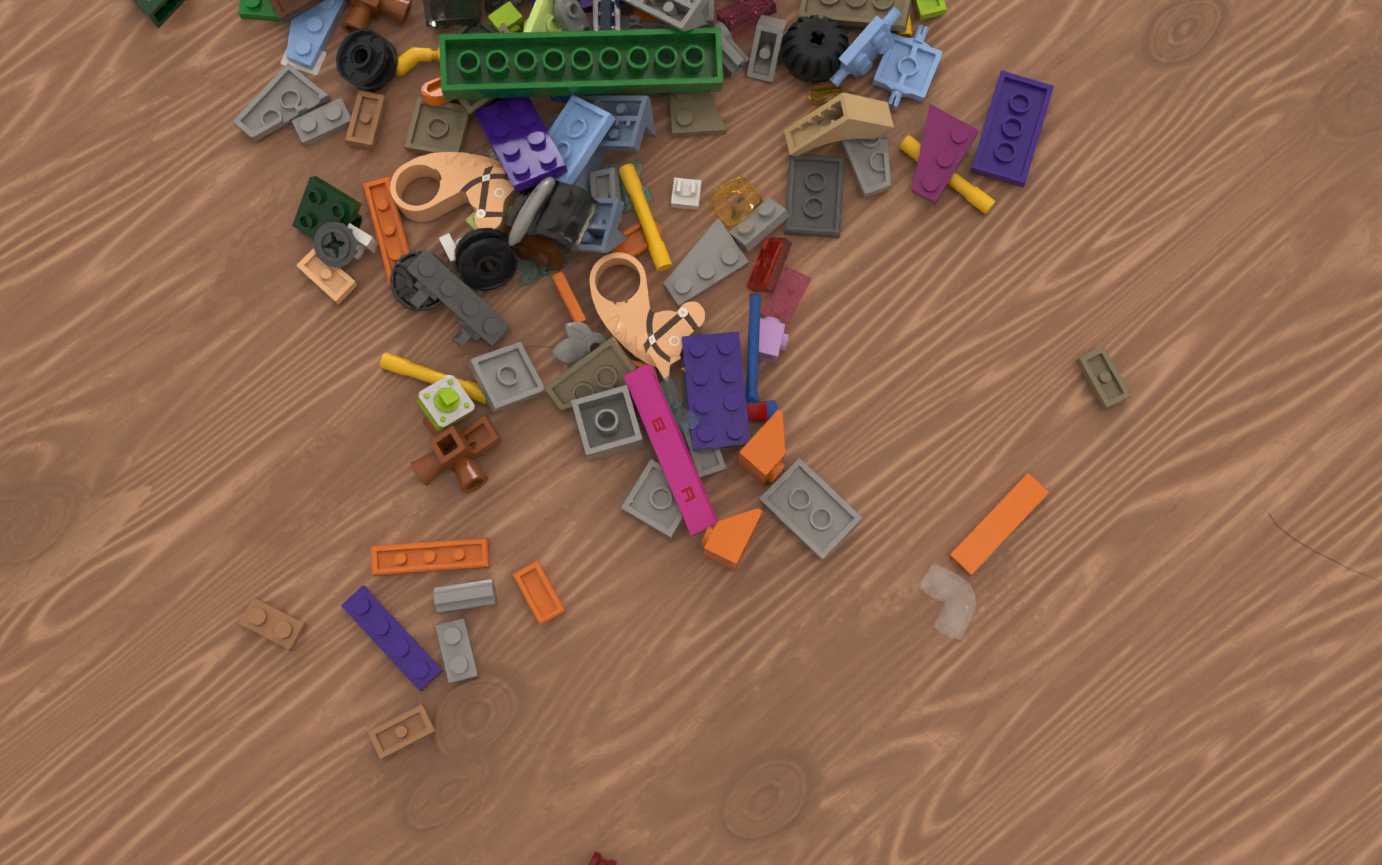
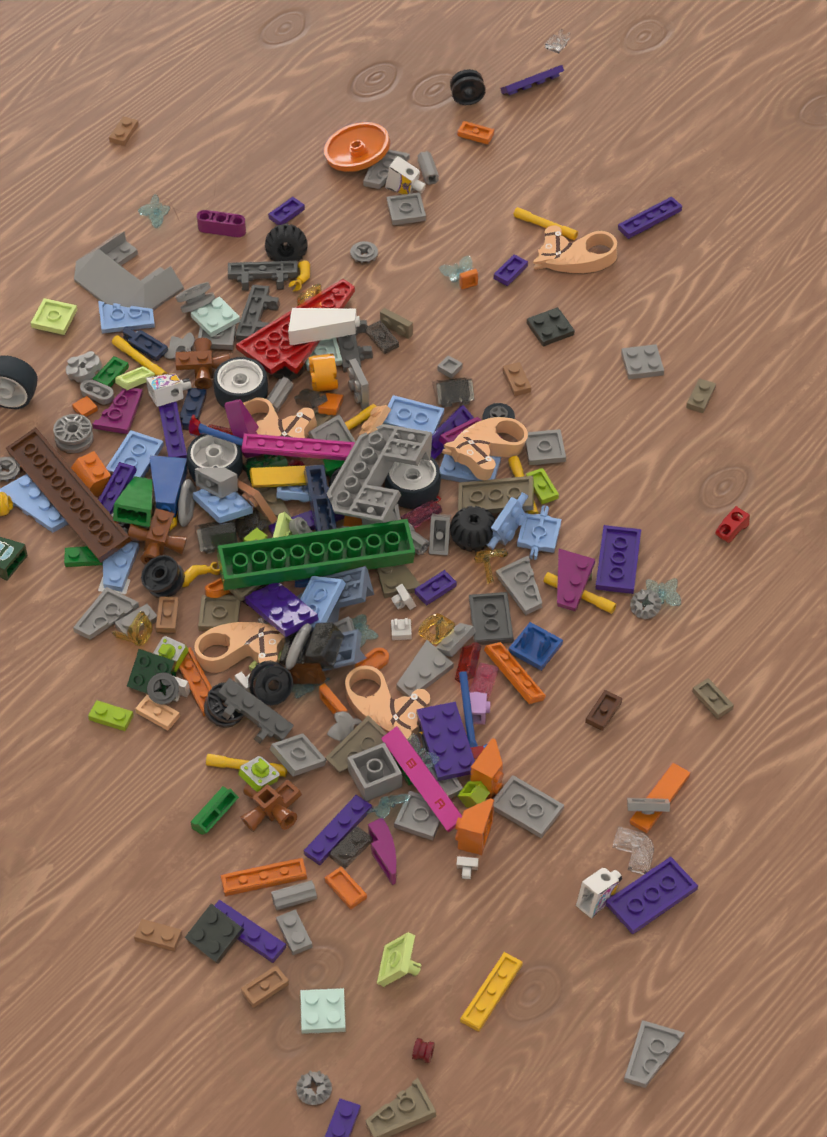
camera: 10 degrees left, 25 degrees down
(264, 267) = (110, 715): none -> lime plate
(309, 142) = (133, 630): none -> clear yellow piece
(346, 639) = (214, 933): none -> pearl dark grey plate
(359, 183) = (172, 649): none -> piece
(378, 444) = (213, 810): none -> green piece
(475, 780) = (322, 1011): none -> light aqua plate
(543, 500) = (337, 829): none -> dark purple plate
(556, 530) = (351, 847): none -> clear smoke plate
(587, 729) = (397, 960): none -> yellowish green tile
(601, 545) = (383, 848): none -> magenta slope
(620, 470) = (383, 809): none -> clear light blue piece
(655, 244) = (387, 661): yellow piece -> none
(697, 146) = (403, 598): none -> white tile
(709, 790) = (491, 992): none -> yellow tile
(710, 589) = (467, 865): none -> white tile
(739, 480) = (473, 793): none -> lime plate
(745, 134) = (435, 587): none -> dark purple plate
(831, 291) = (514, 673): none -> orange tile
(838, 120) = (497, 564): tan arch -> none
(869, 252) = (535, 646): none -> blue plate
(887, 665) = (597, 890): none -> white torso
(946, 372) = (603, 710): none -> reddish brown plate
(958, 679) = (651, 895): none -> dark purple plate
(980, 541) = (648, 805): none -> light grey plate
(1041, 220) = (650, 610): none -> light grey gear
(1063, 192) = (665, 591): none -> clear light blue piece
(1186, 98) = (732, 524): none -> red leg

